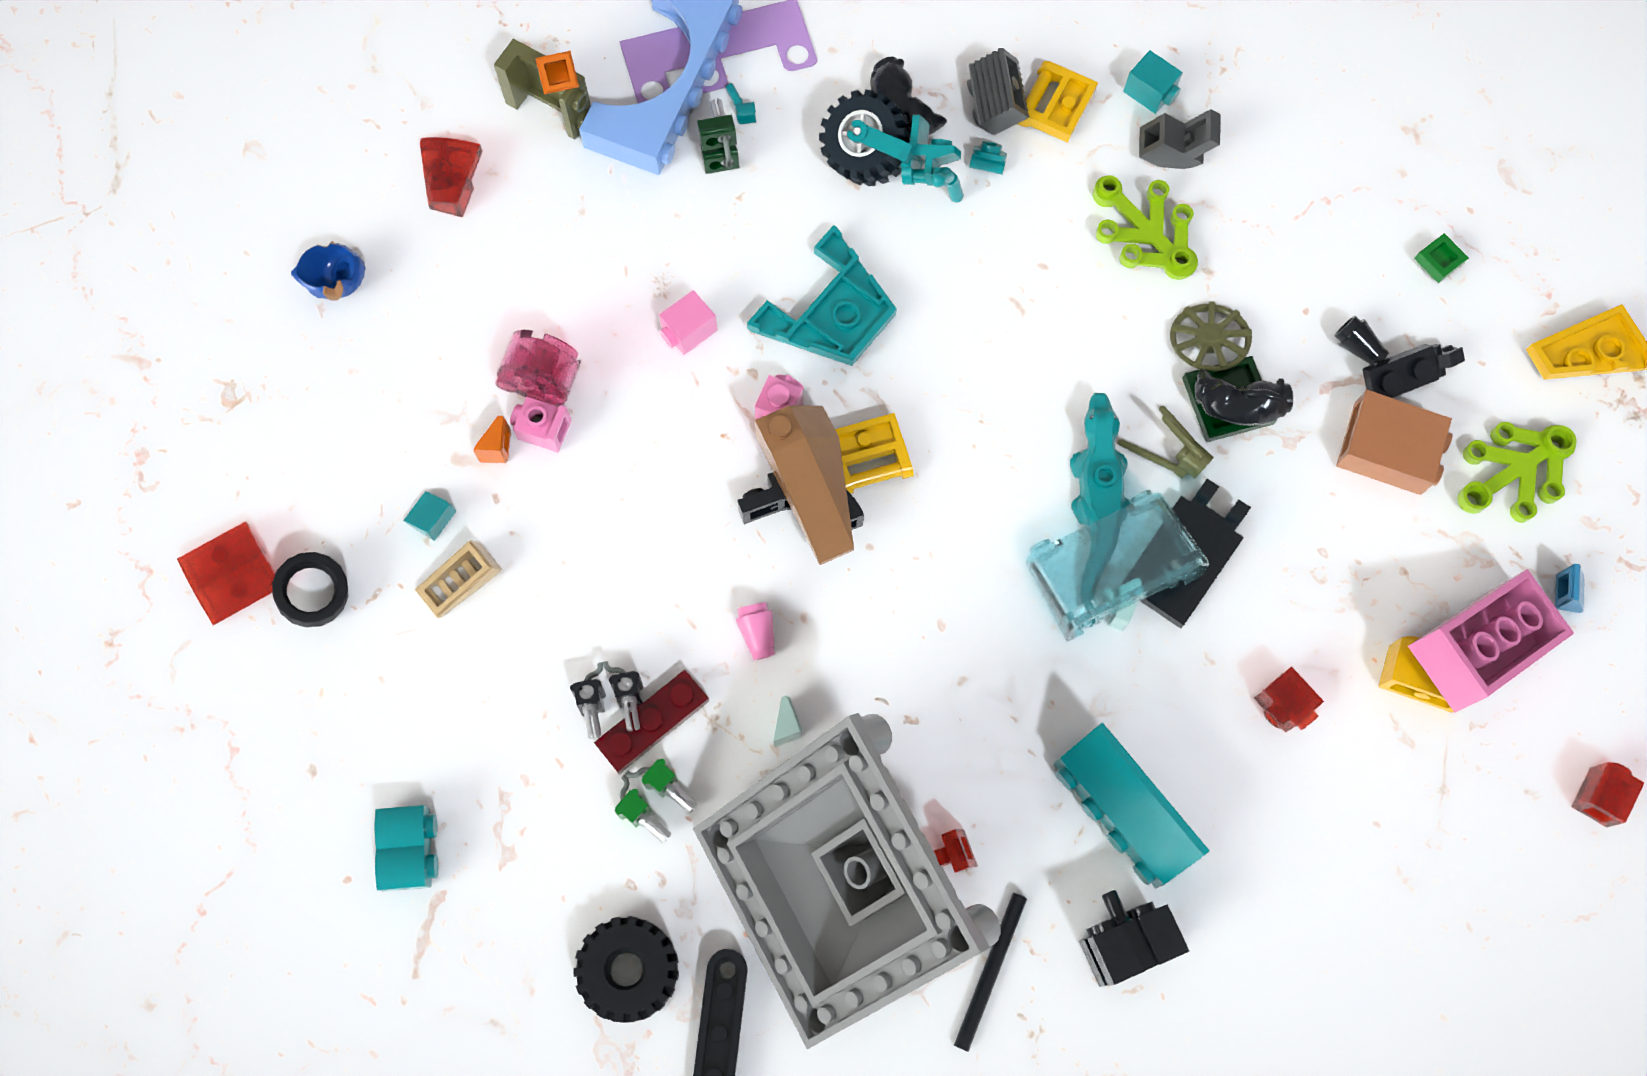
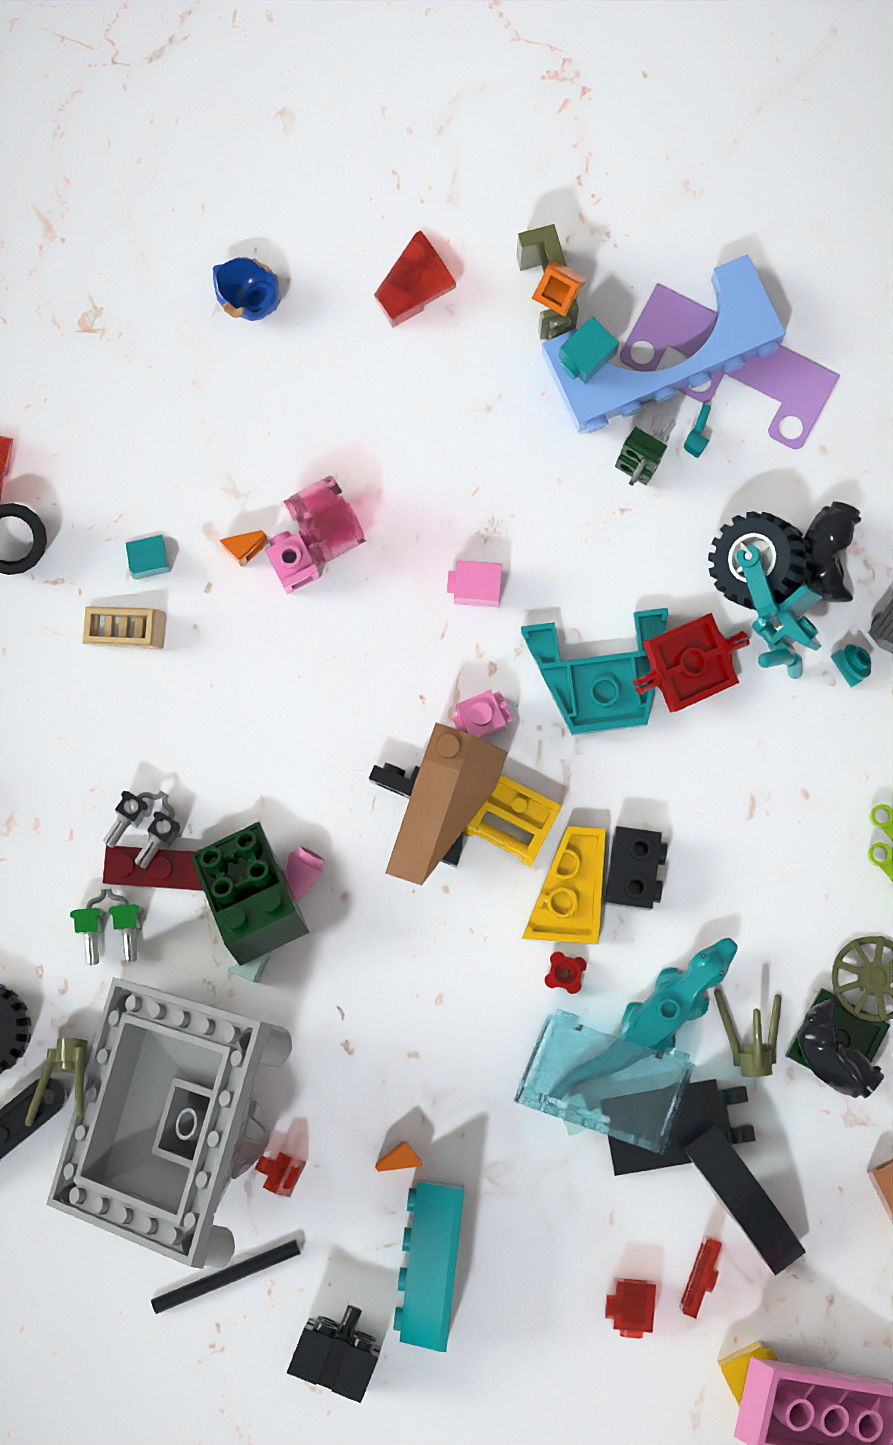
camera: 50 degrees right, 10 degrees up
(616, 101) = (587, 351): none -> teal brick
(718, 921) = (72, 1058): none -> olive plant
(736, 670) = (249, 894): none -> dark green slope
(885, 243) = (690, 662): none -> red plate
(958, 464) = (572, 891): none -> yellow wing
(984, 409) = (634, 868): none -> black brick
(1016, 516) = (572, 981): none -> red plate
(1026, 756) = (399, 1158): none -> orange slope
(1288, 548) = (745, 1200): none -> black slope
(1311, 635) = (702, 1276): none -> clear red plate

